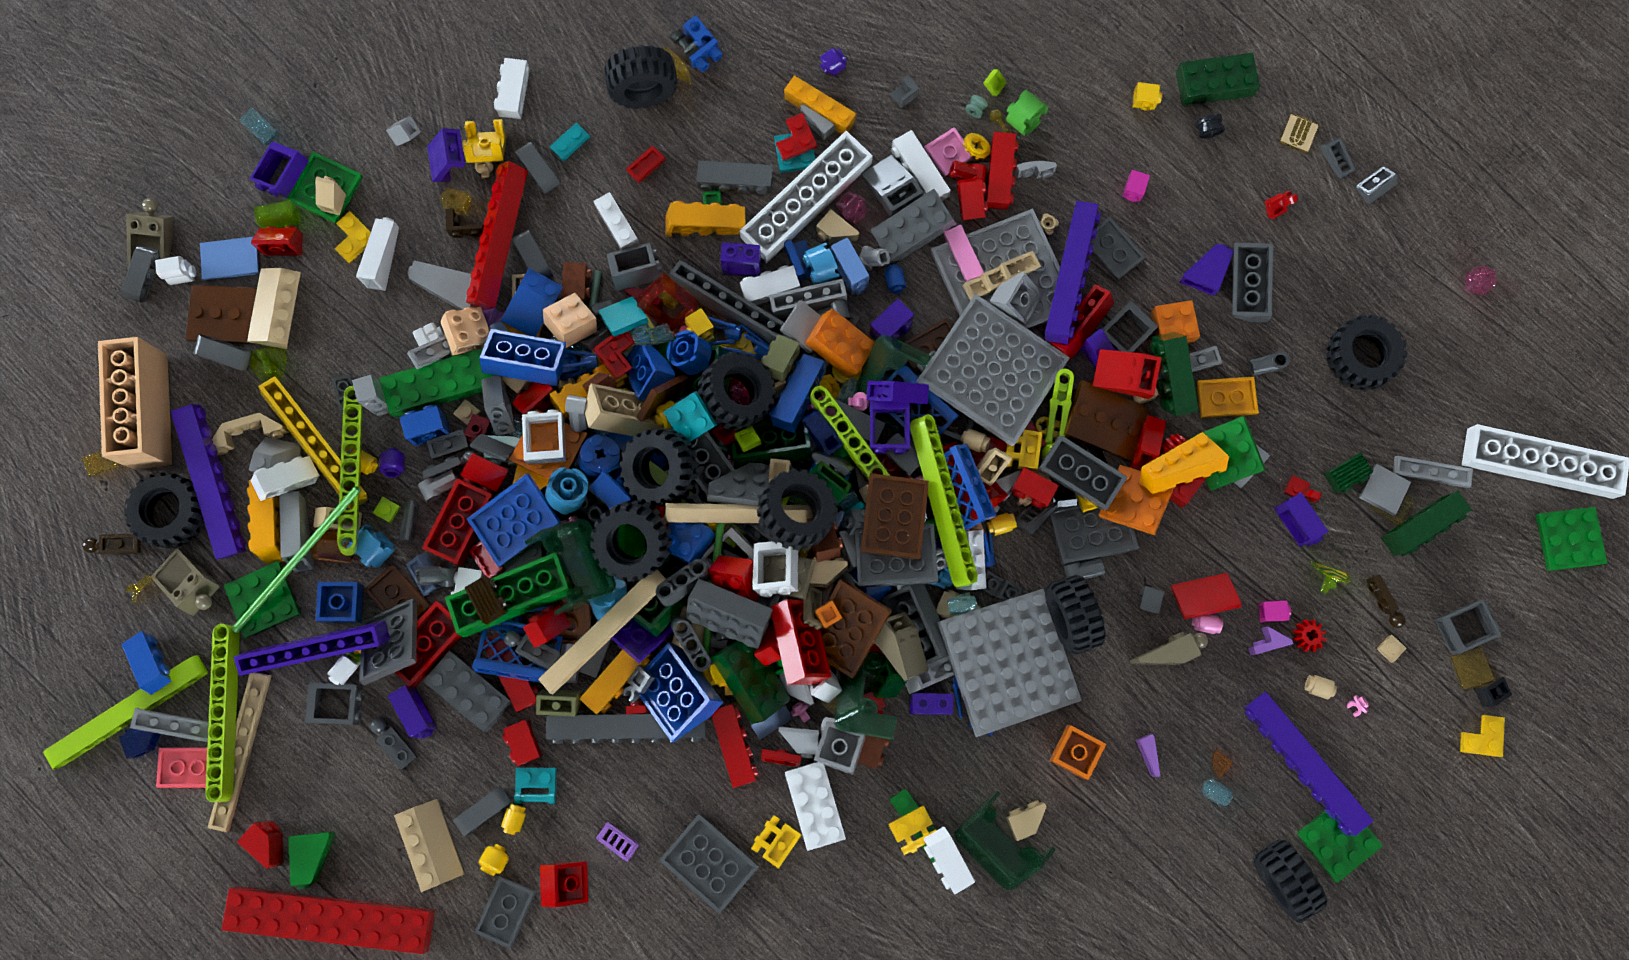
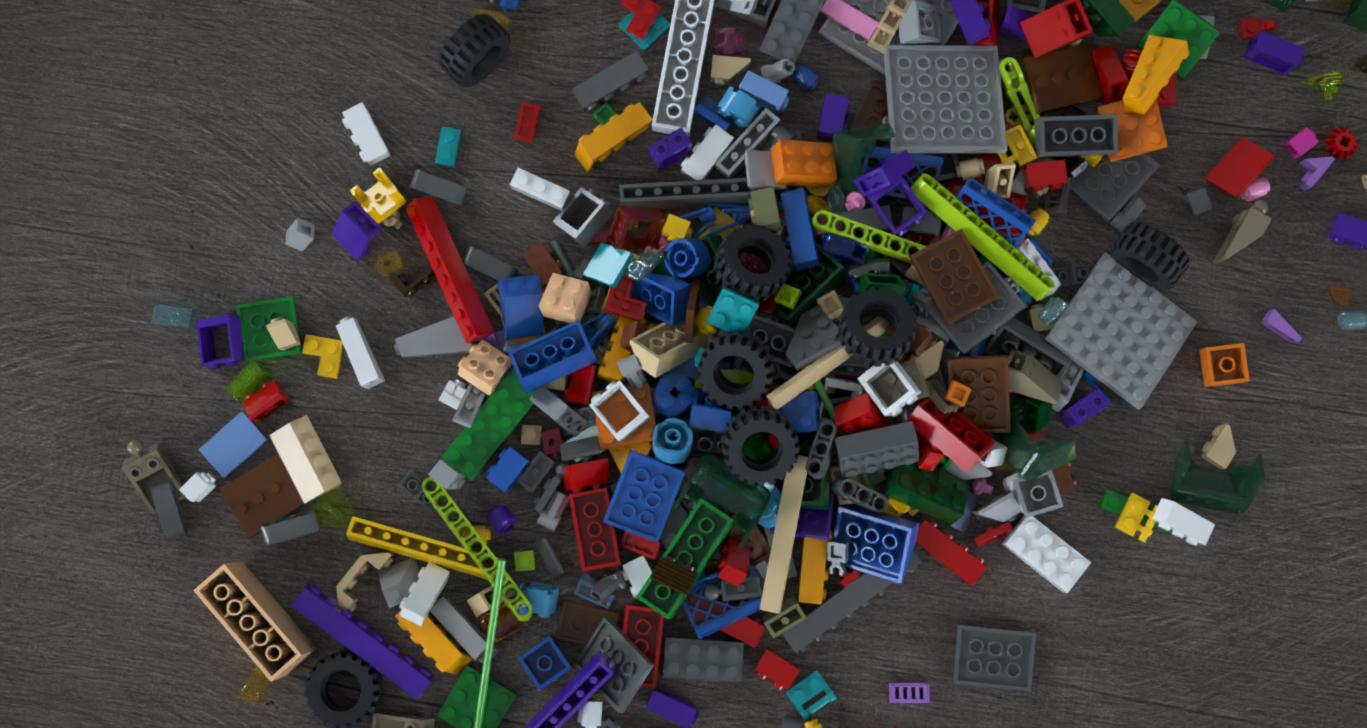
camera: 30 degrees left, 5 degrees up
(780, 846) = (1040, 603): yellow plate -> none

